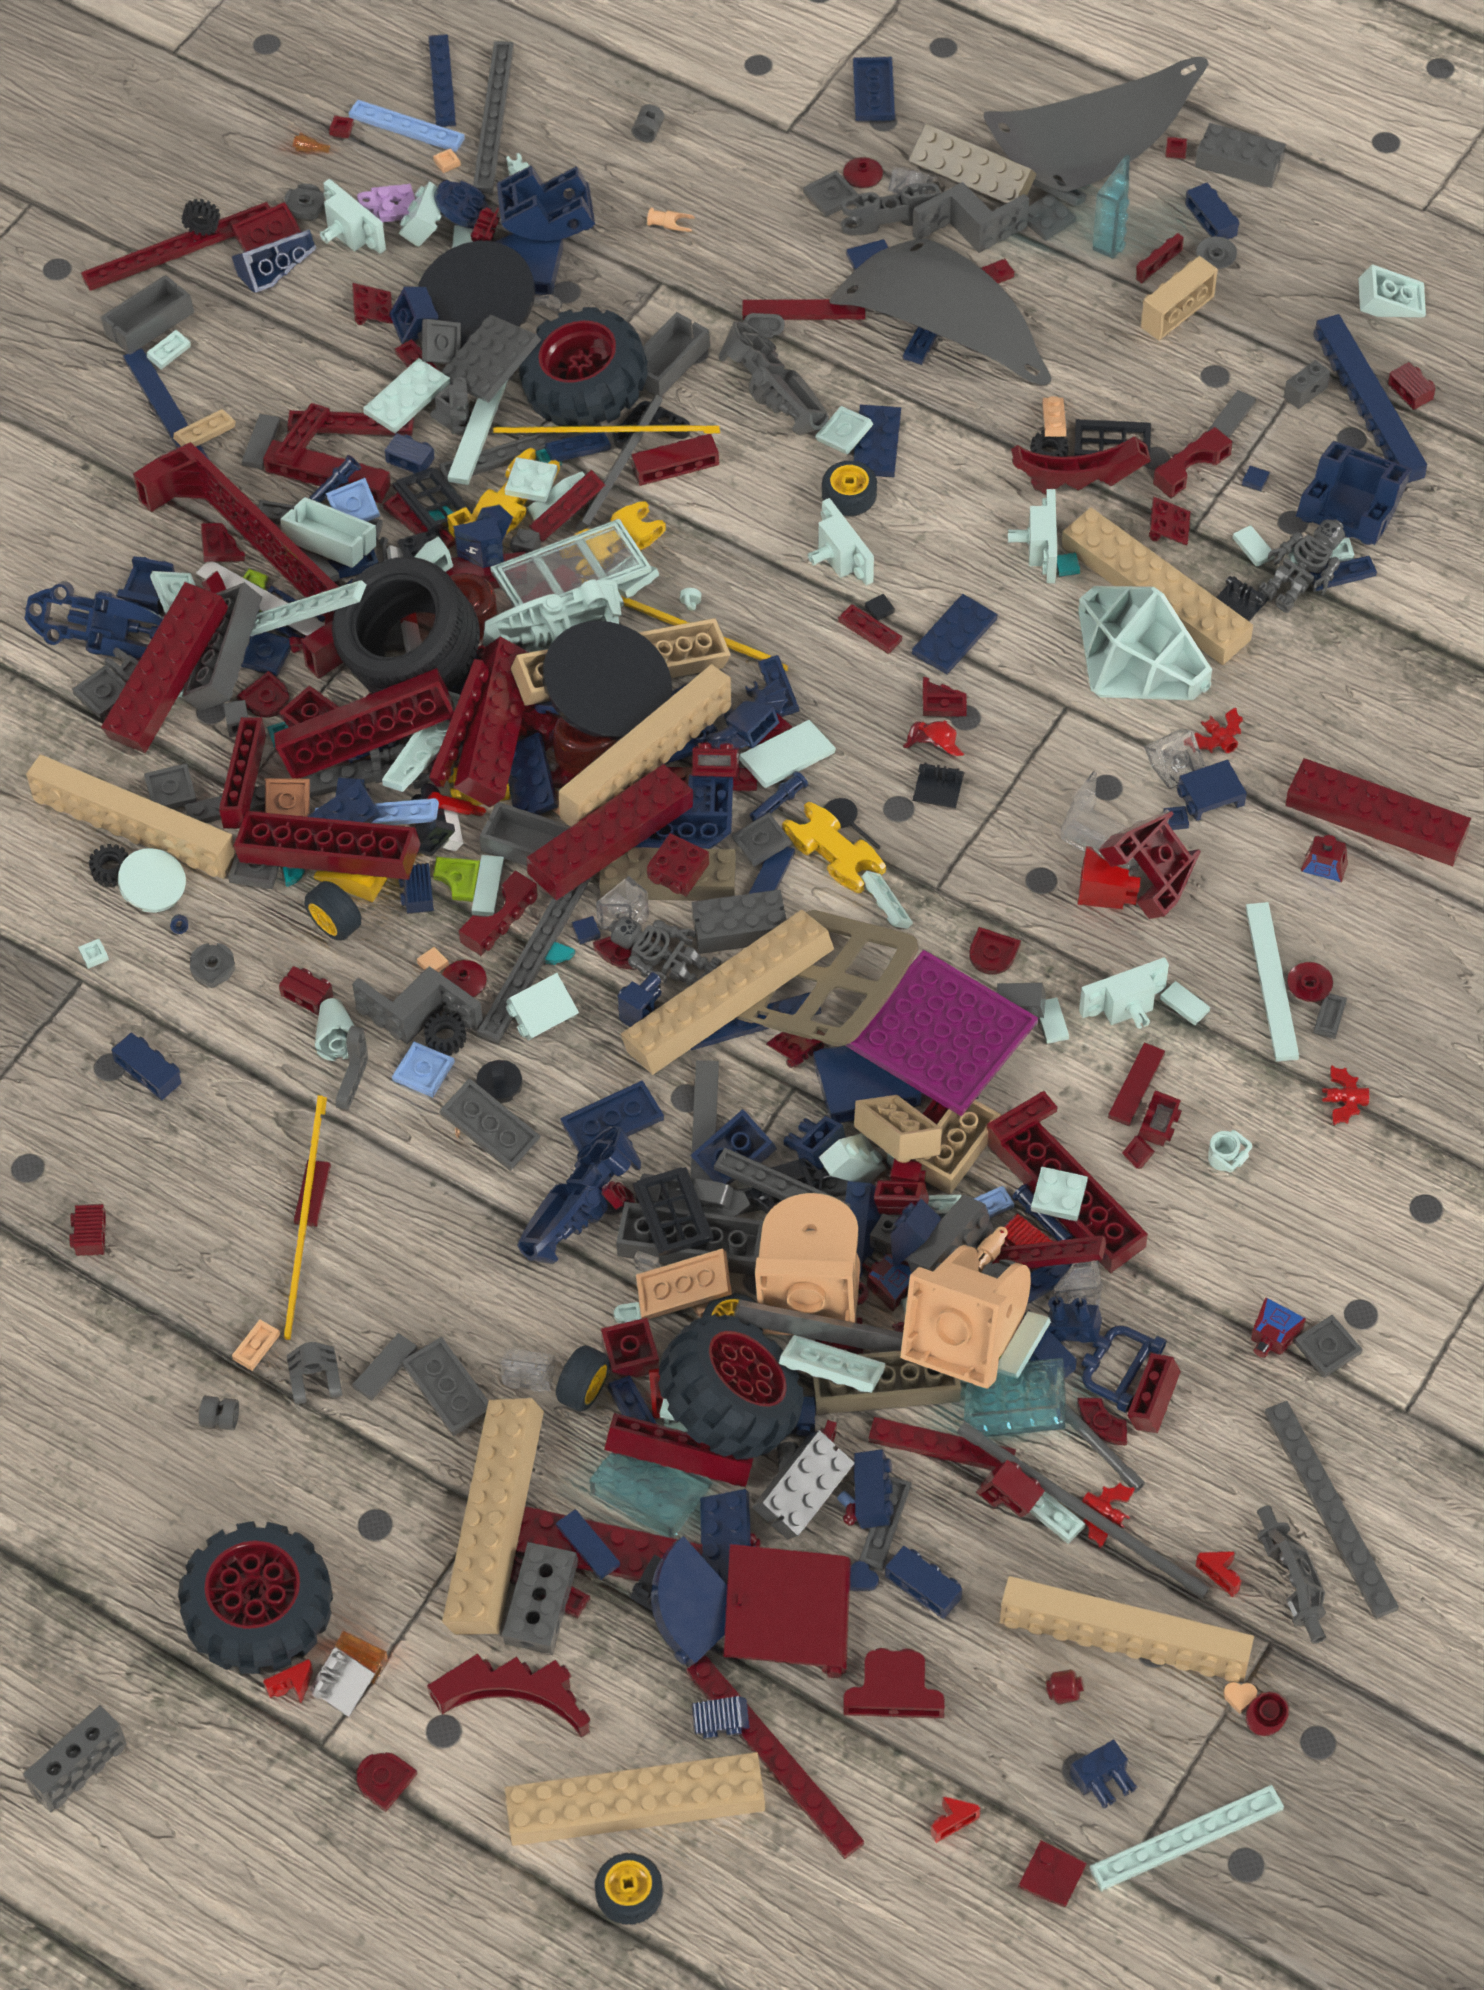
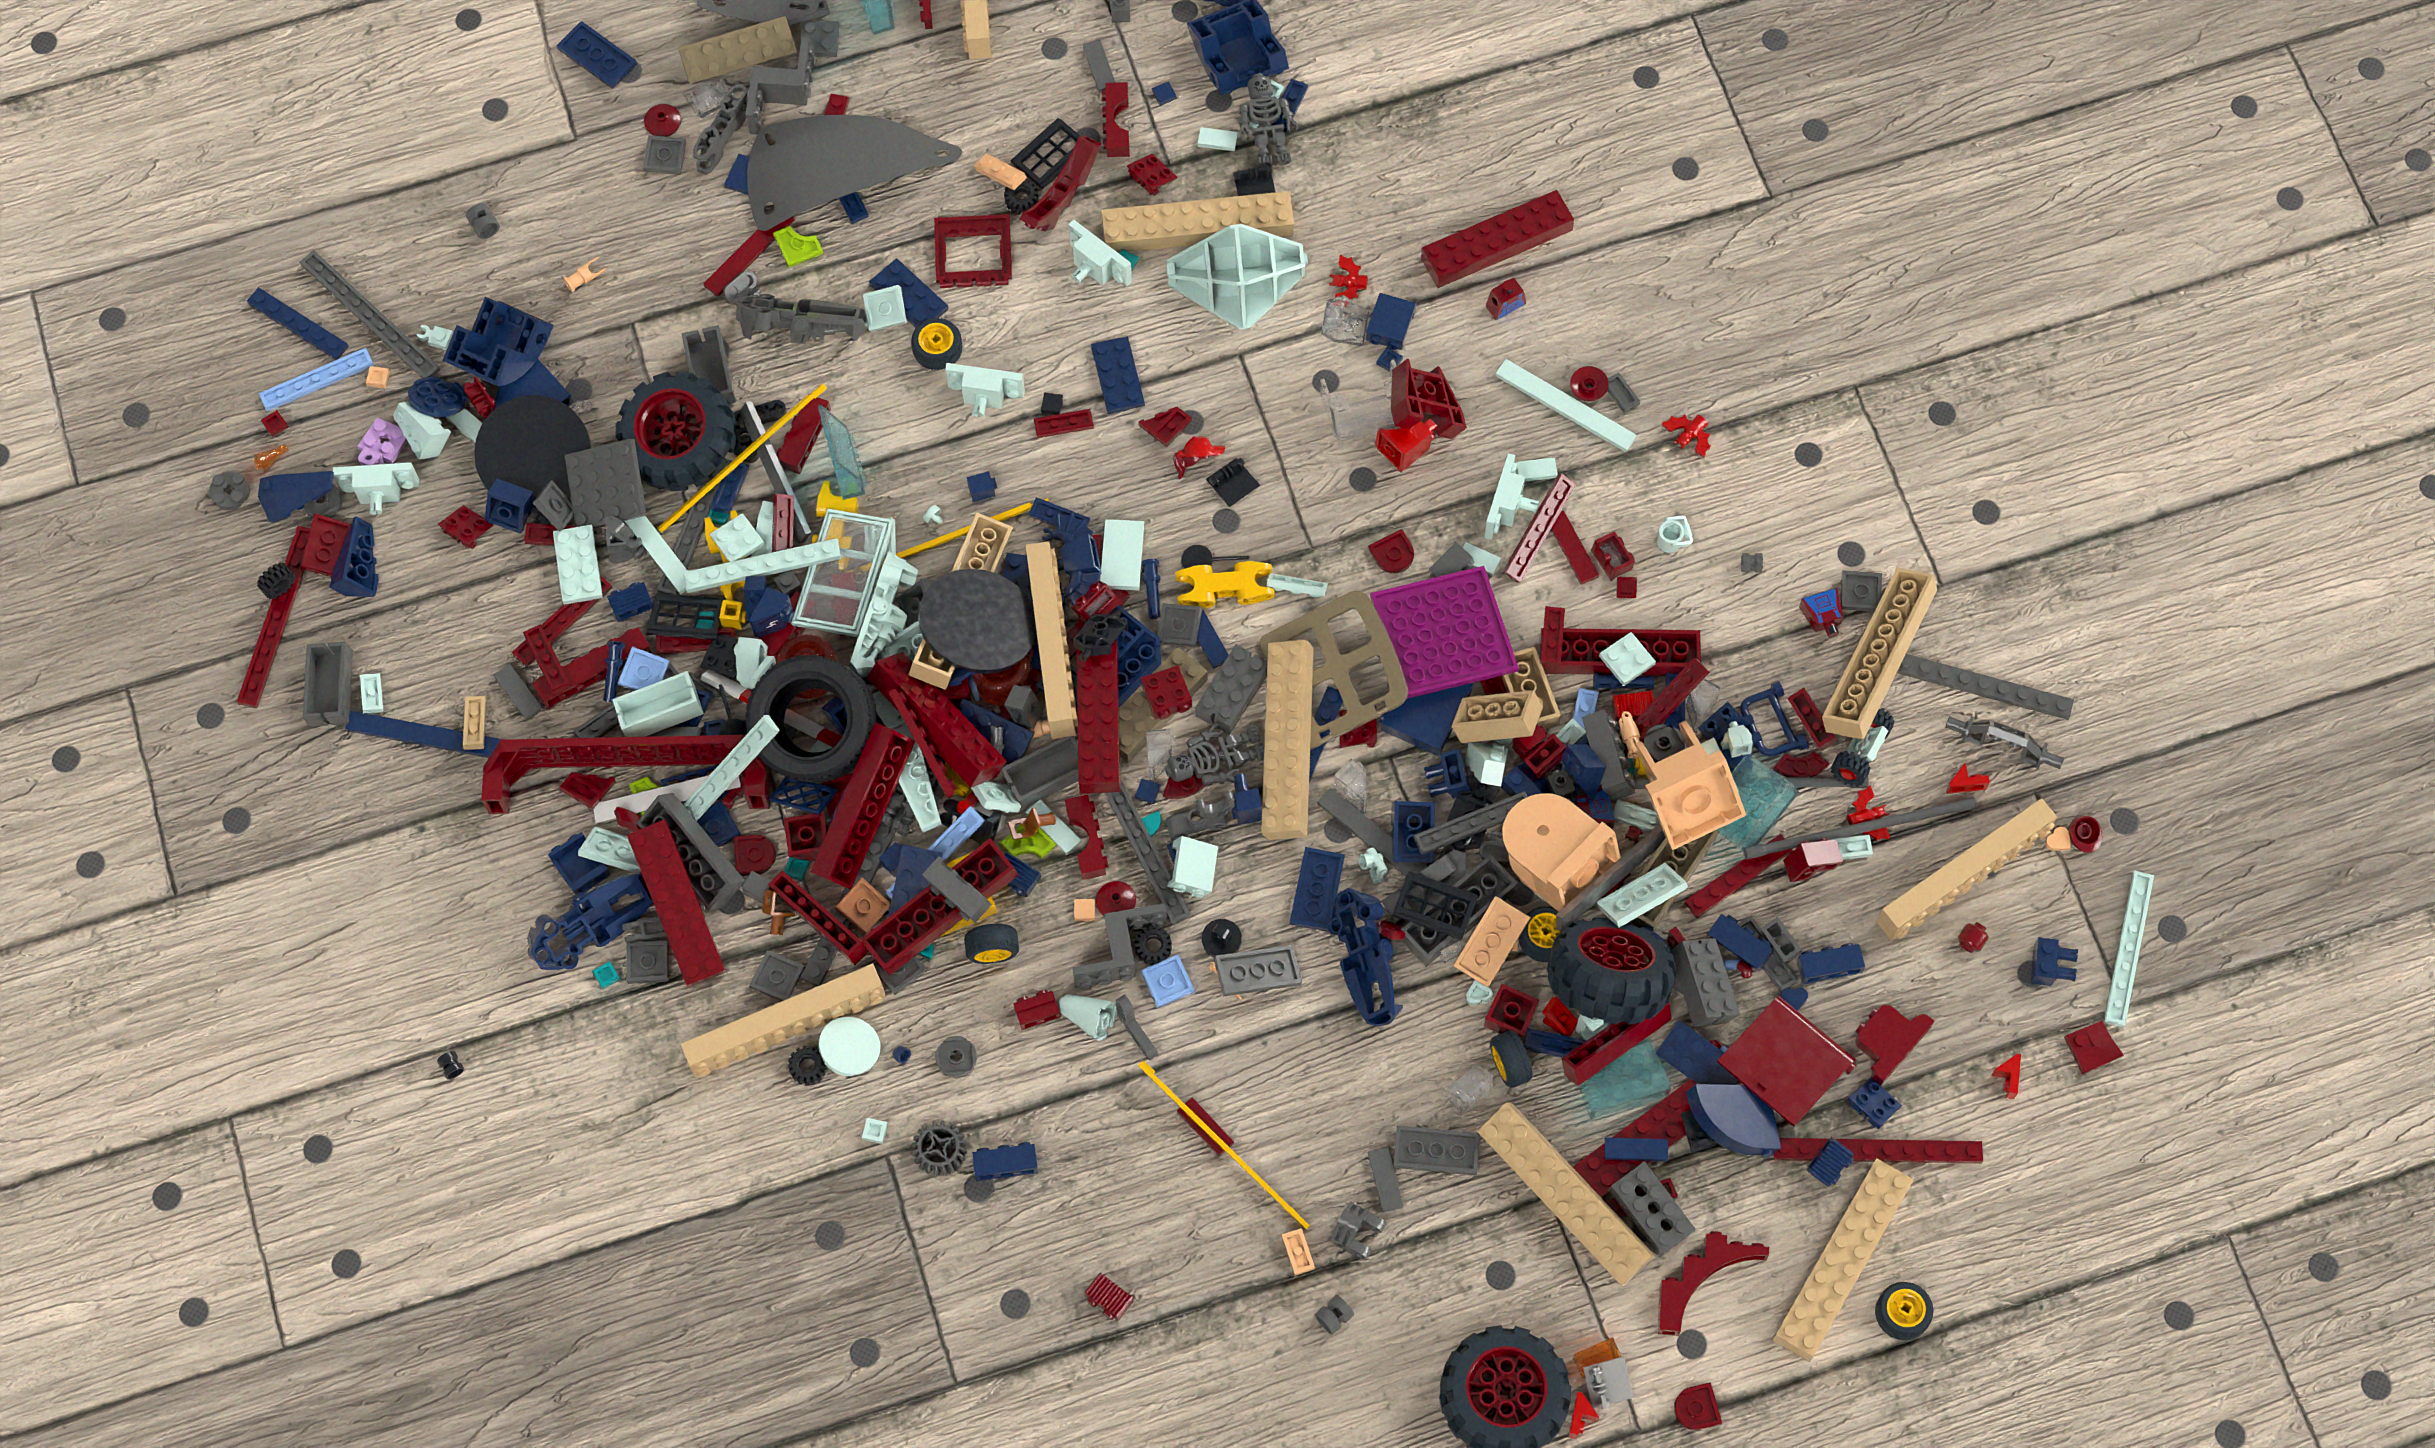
camera: 50 degrees left, 10 degrees up
(68, 674) = (606, 975): none -> teal tile
(121, 1016) = (932, 1152): none -> dark grey gear
(222, 748) = (777, 915): none -> dark orange bracket
(253, 134) = (225, 481): none -> dark grey plate
(287, 171) = (289, 492): none -> dark blue wedge
(341, 833) = (956, 891): none -> dark grey wedge
(342, 673) = (781, 789): none -> dark blue window
(467, 816) = (996, 796): none -> light aqua plate
(472, 863) = (1031, 824): none -> dark orange bracket
(518, 784) = (997, 738): none -> dark grey pin
(523, 511) = (762, 565): none -> light aqua plate
(565, 768) = (1023, 706): none -> dark grey brick
(601, 986) = (1211, 817): none -> dark grey piece
(673, 487) = (843, 455): none -> clear light blue slope
(678, 1143) = (1374, 862): none -> light aqua plate
(682, 774) = (1099, 634): none -> black plate
(735, 1072) = (1352, 784): none -> clear slope
(750, 611) = (981, 486): none -> dark blue brick
(818, 1718) = (1874, 1102): none -> dark blue hinge
(840, 337) = (796, 247): none -> lime tile
(906, 1521) = (1781, 940): none -> dark grey brick
(981, 434) = (973, 226): none -> dark red hinge
(1066, 1339) = (1738, 740): none -> light aqua piece
(1125, 1040) = (1539, 528): none -> plate
(1197, 1448) = (1853, 764): none -> plate
(1265, 1235) = (1752, 562): none -> dark grey wheel
(1269, 1395) = (1879, 653): none -> tan brick

